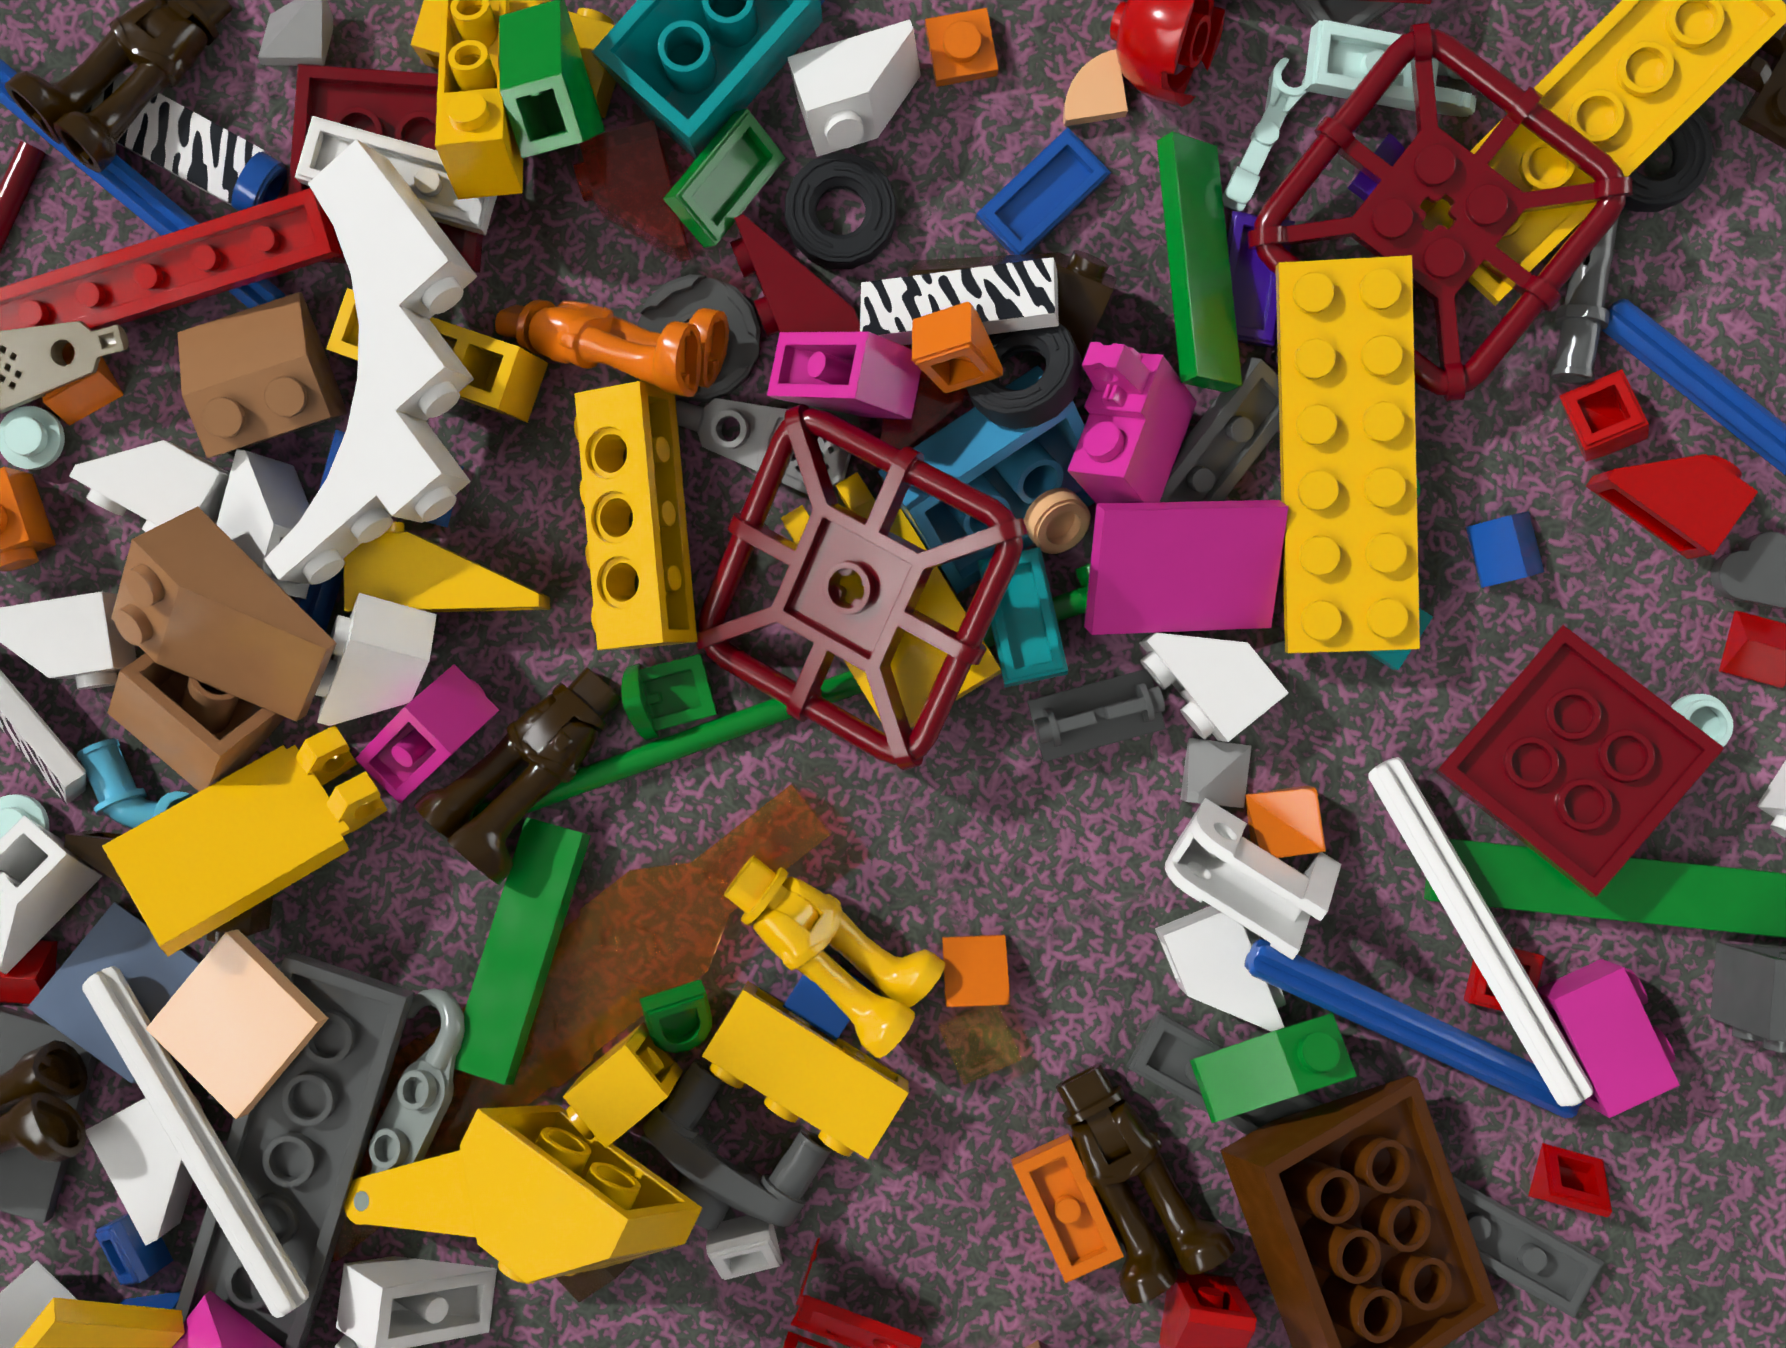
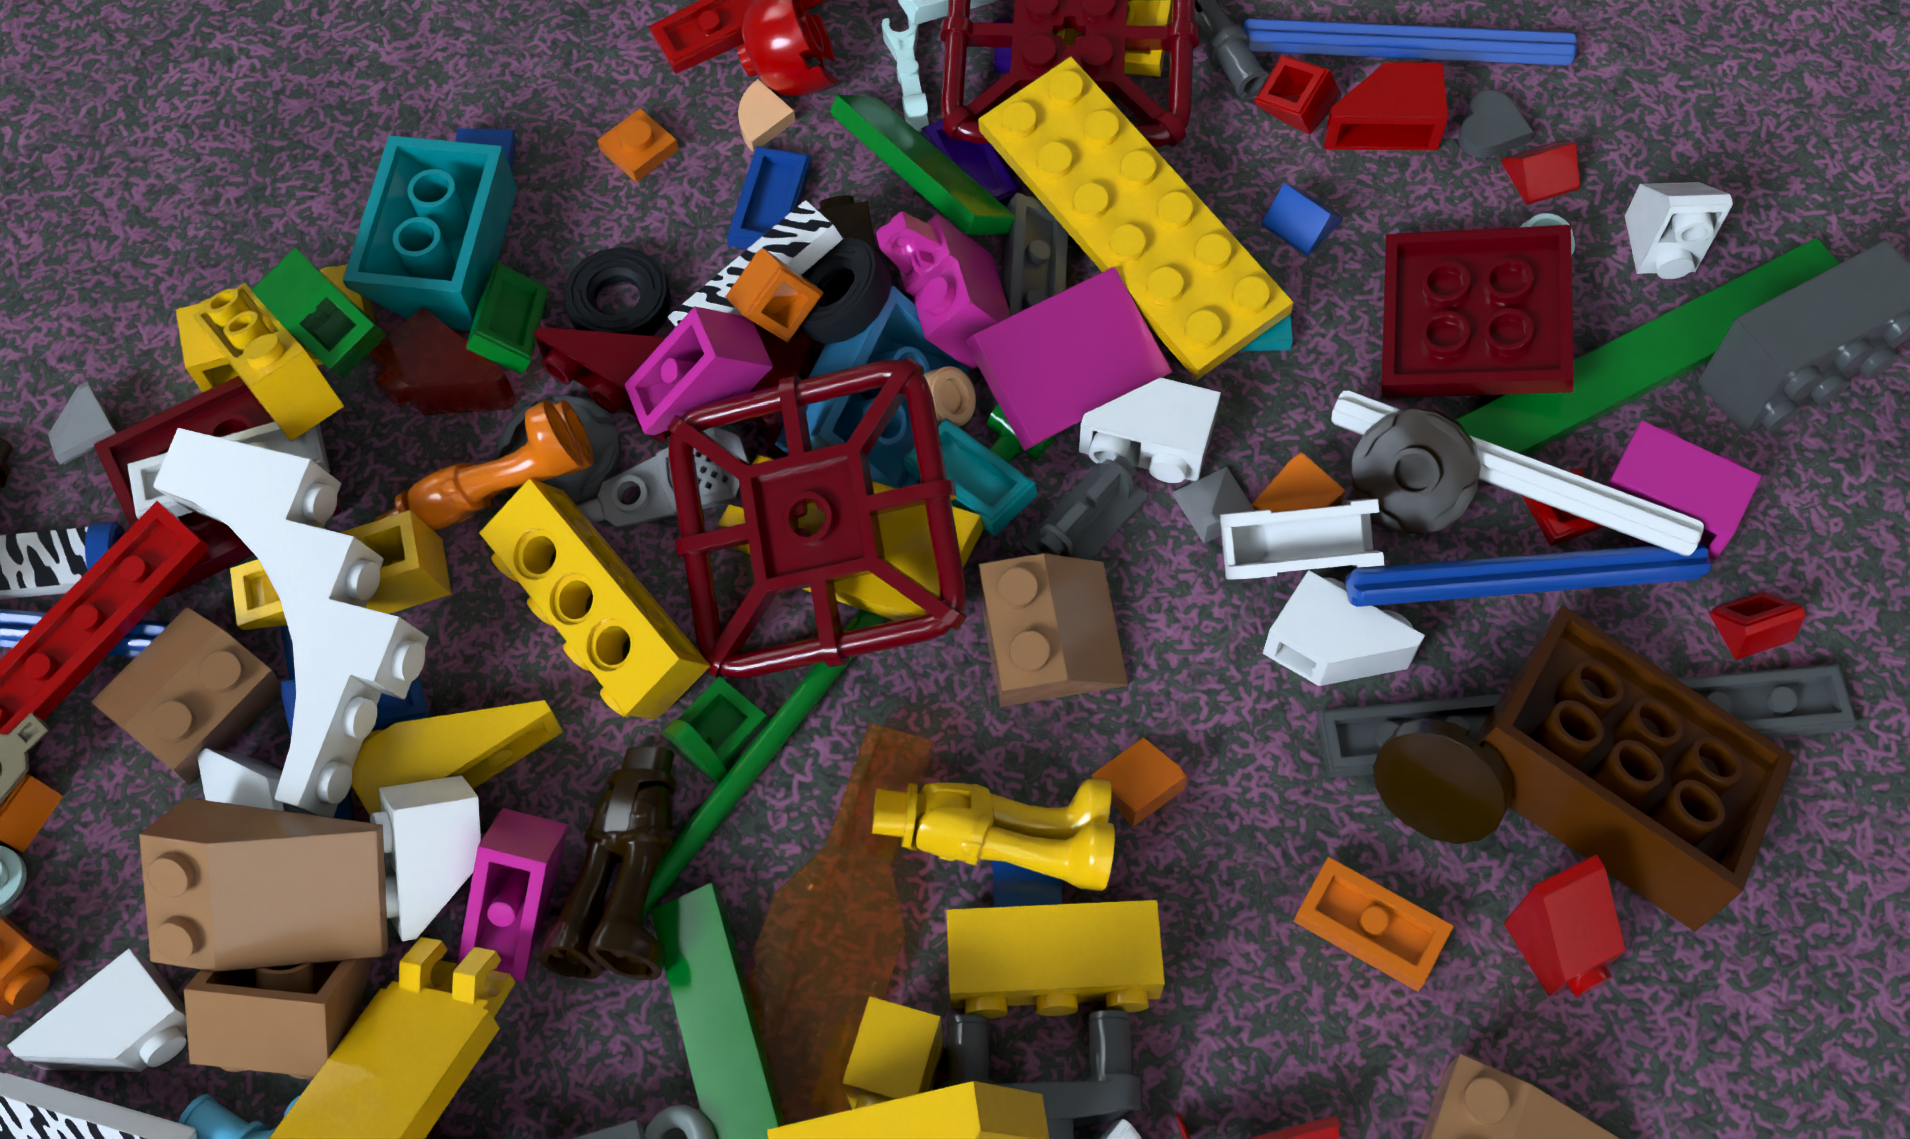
camera: 30 degrees left, 25 degrees down
(154, 482) = (108, 842): white slope -> none
(678, 1017) = (908, 981): green tile -> none
(855, 85) = (568, 206): white slope -> none
(979, 1042) = (1188, 838): clear yellow tile -> none
(991, 803) = (1049, 627): none -> medium nougat slope
(1119, 1146) = (1376, 835): dark brown piece -> none
(1202, 1151) = (1443, 781): none -> dark brown tile
(1272, 1067) = (1447, 667): green slope -> none
(1399, 873) = (1418, 469): none -> dark brown tile

